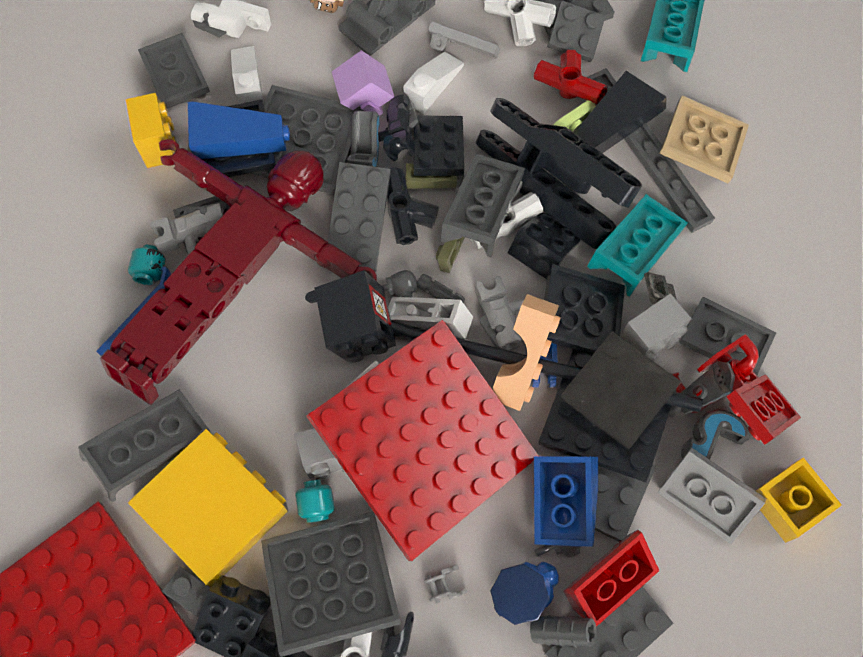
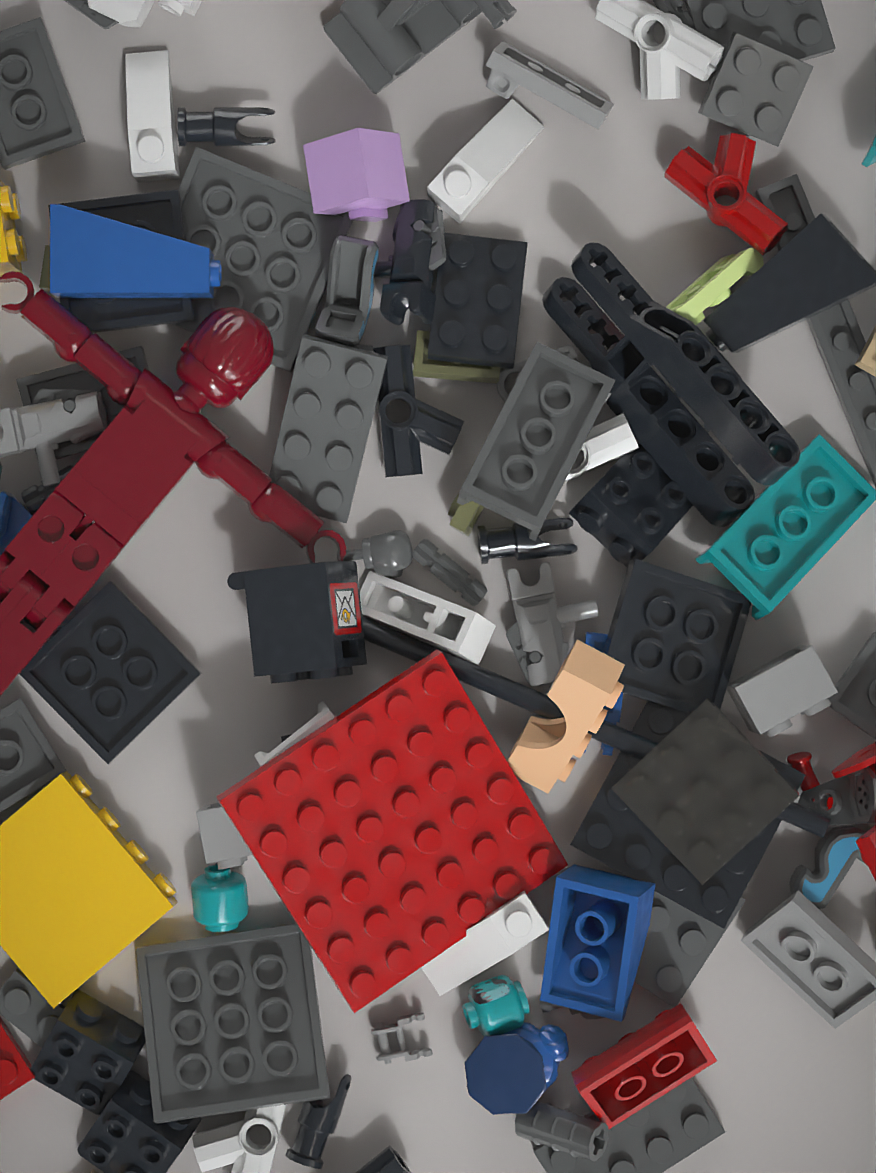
camera: 10 degrees right, 20 degrees up
(235, 370) = (109, 672): none -> black plate
(284, 76) = (219, 126): none -> black piece
(483, 268) = (516, 543): none -> black piece
(492, 512) = (487, 943): none -> white slope
(505, 551) = (496, 1006): none -> teal head
(658, 287) = (806, 623): clear smoke slope -> none

